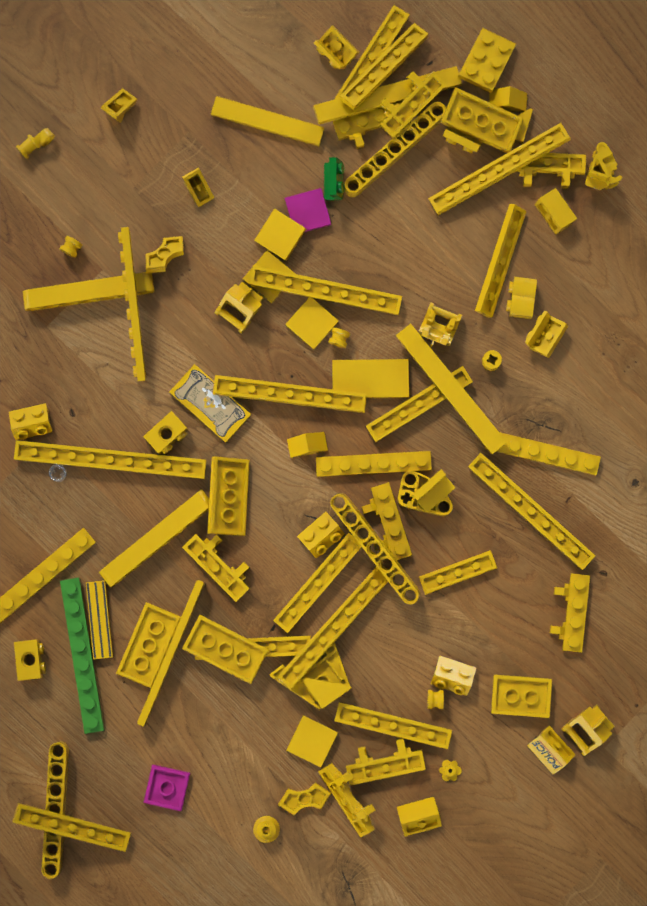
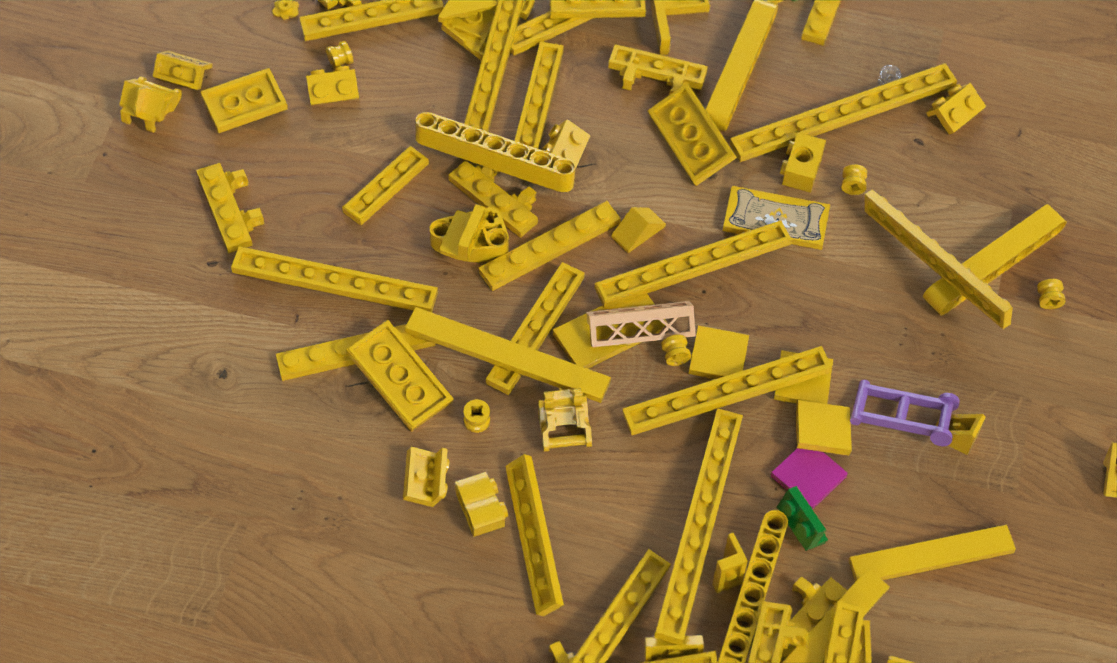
camera: 145 degrees right, 25 degrees down
(140, 401) = (854, 179): none -> yellow wheel
(159, 259) = (939, 347): yellow tile -> none
(193, 209) = (938, 435): none -> medium lavender piece
(244, 300) = (814, 326): yellow piece -> none
(350, 369) = (641, 313): none -> light nougat fence
(399, 167) = (731, 568): none -> yellow panel
(399, 207) = (698, 528): none -> yellow plate
(526, 414) = (399, 375): none -> yellow tile
(555, 211) = (498, 630): yellow hinge -> none

